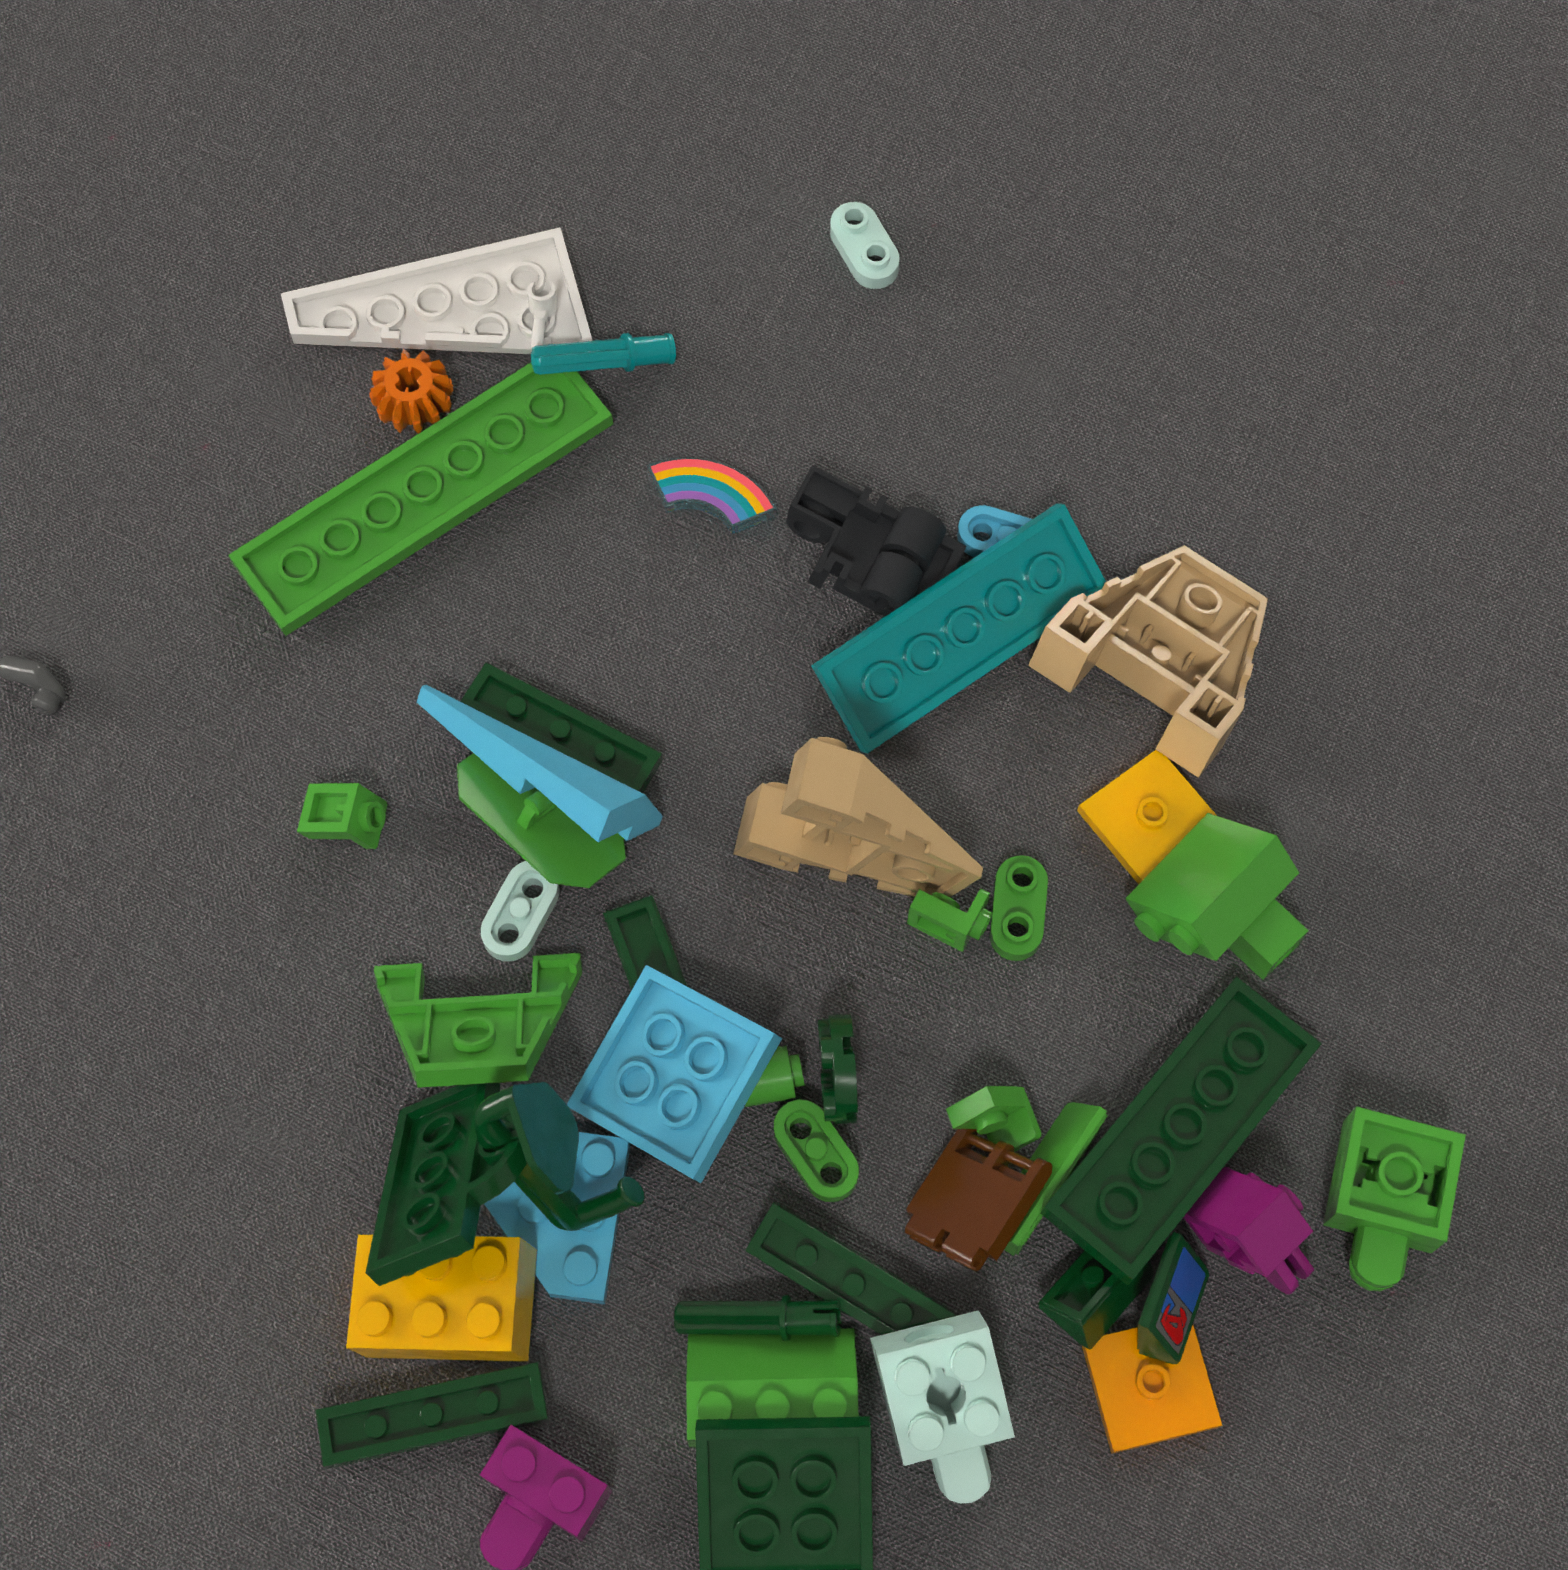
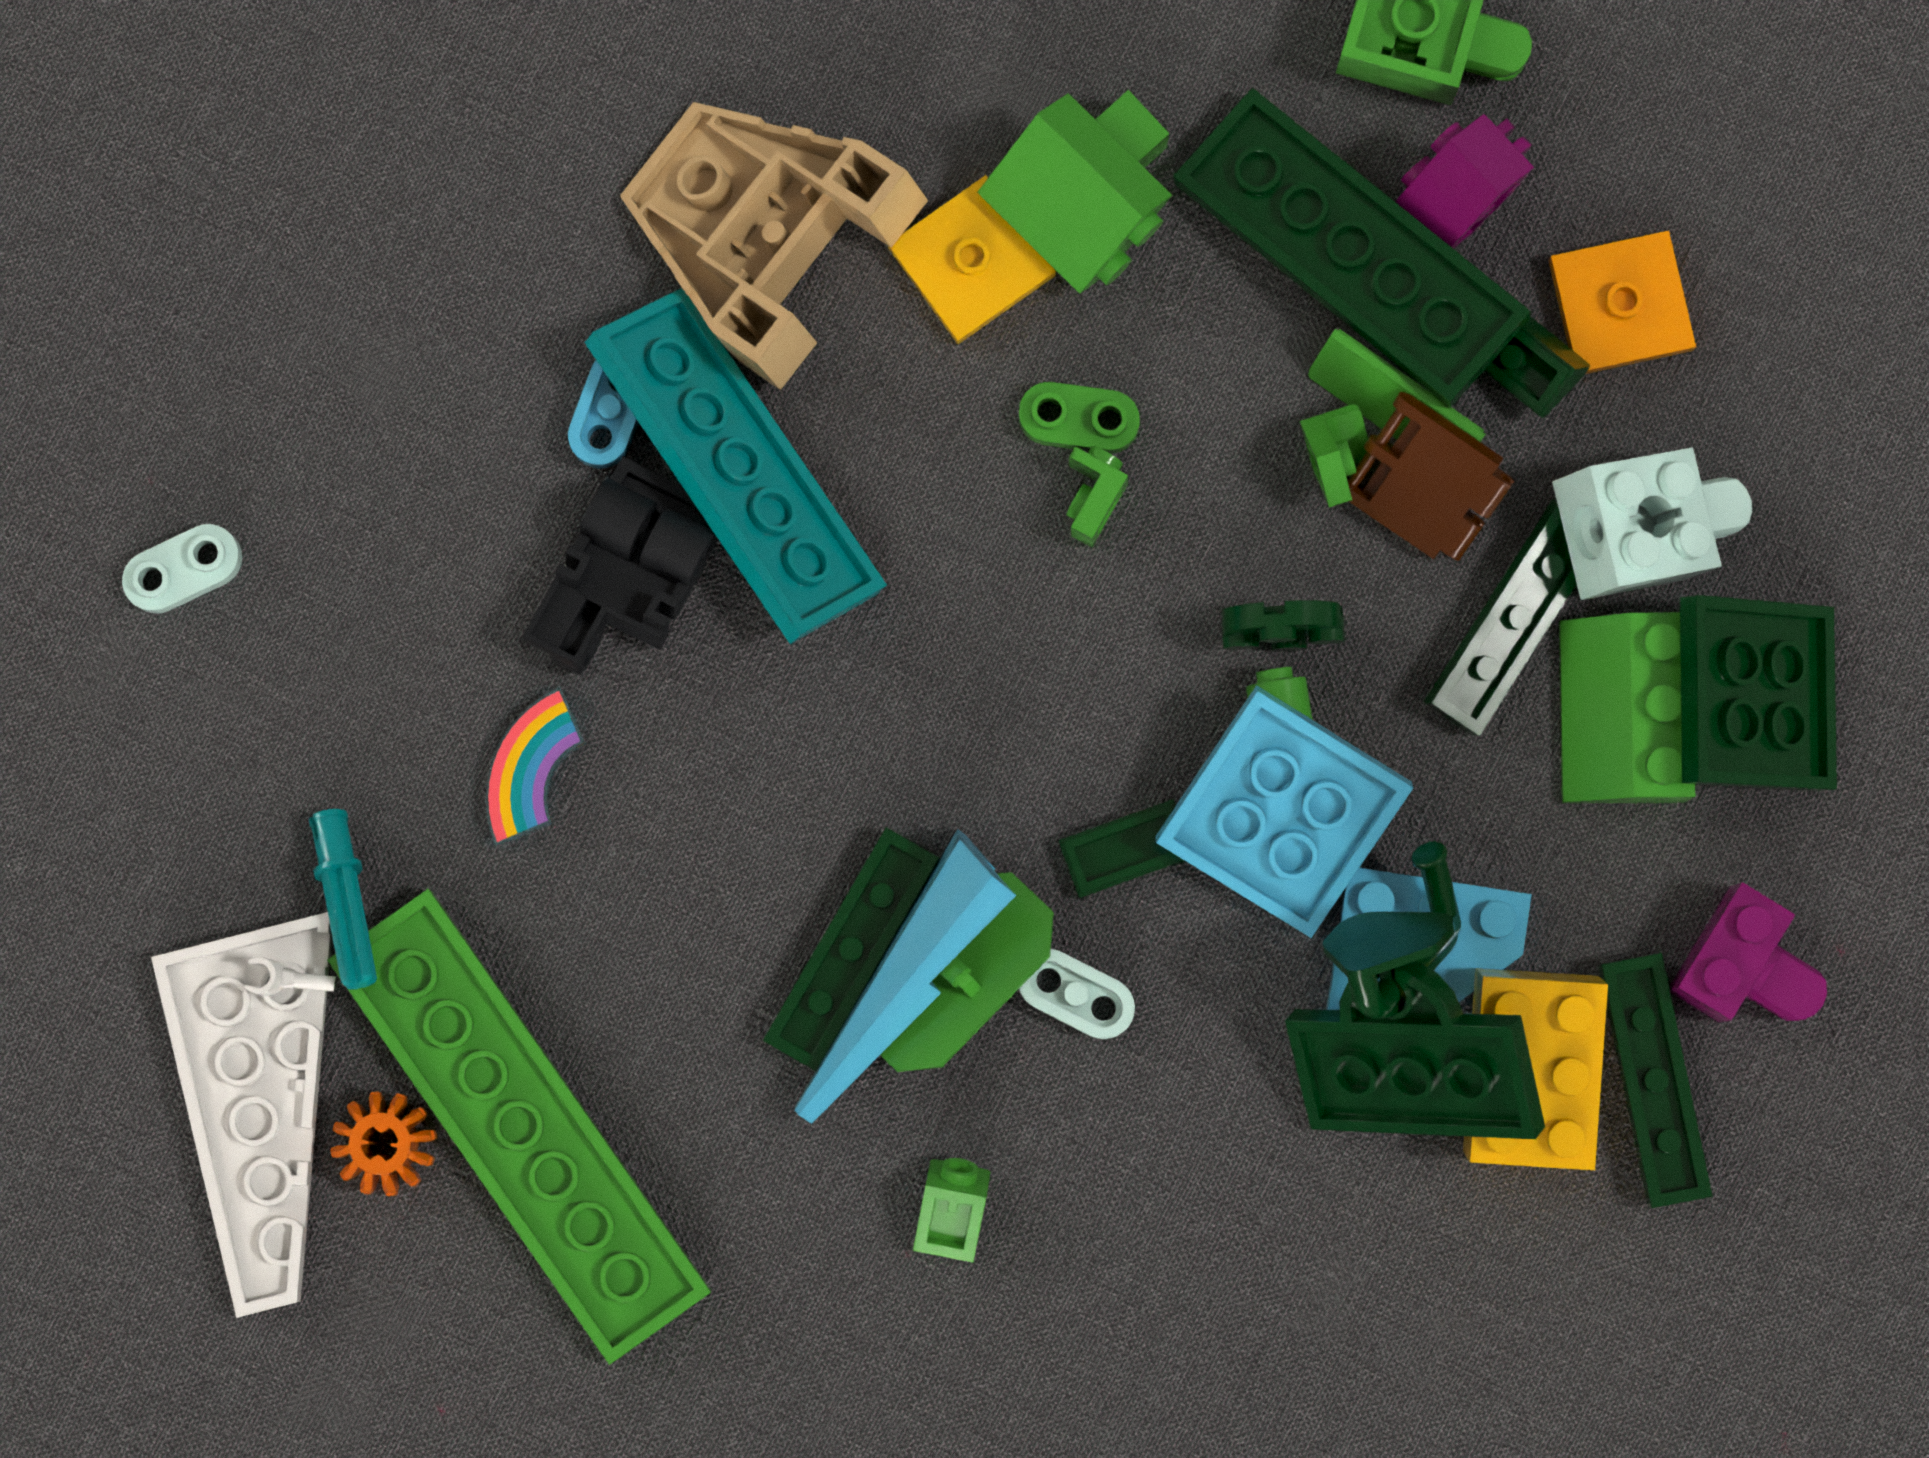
camera: 85 degrees left, 15 degrees up
(476, 1035) = (1242, 1034): bright green wing -> none
(759, 1317) = (1553, 723): dark green axle -> none
(816, 1152) = (1364, 657): bright green plate -> none
(852, 821) = (1000, 614): tan wedge -> none
(1172, 1302) = (1543, 272): slope -> none

